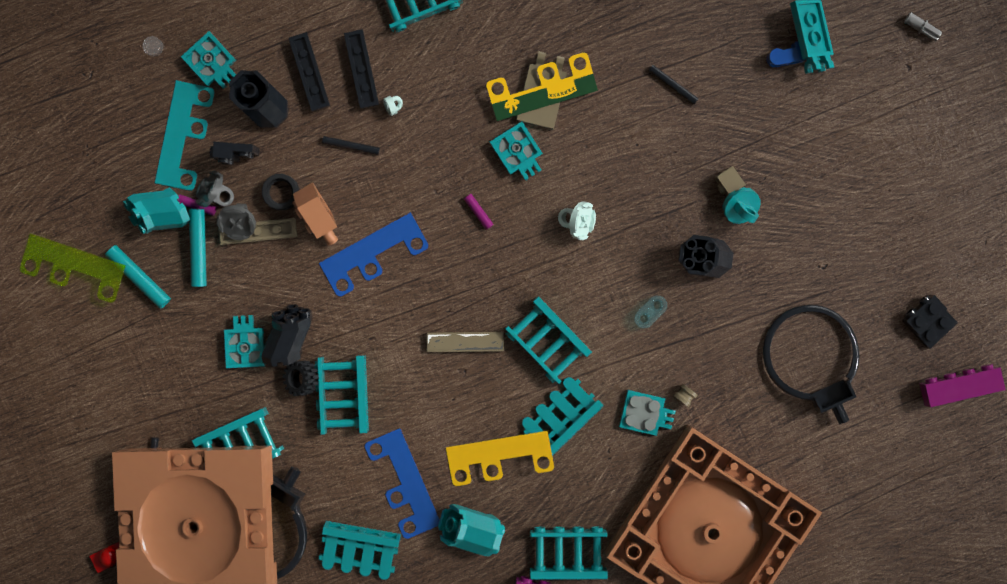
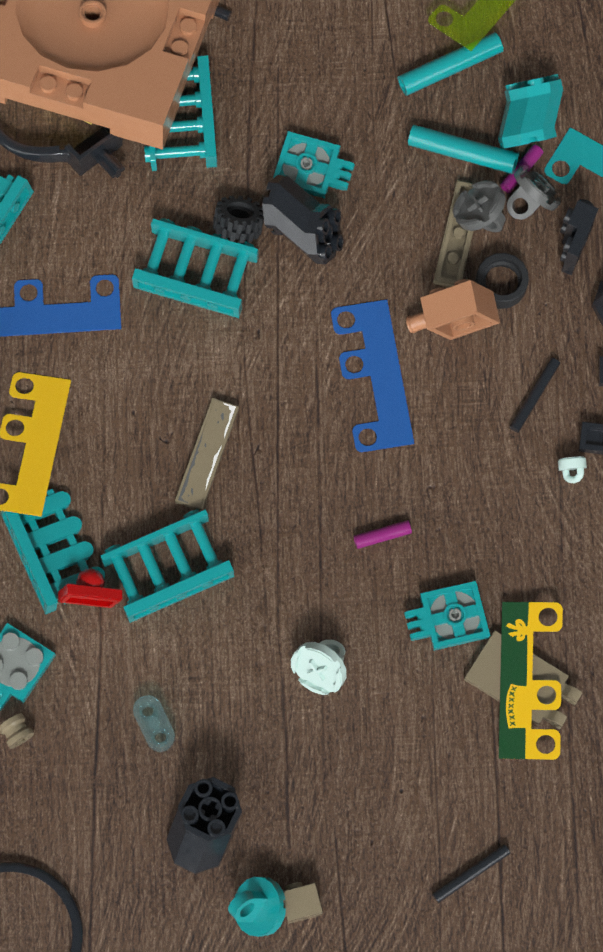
camera: 110 degrees right, 15 degrees down
(582, 382) = (90, 591): none -> red tile

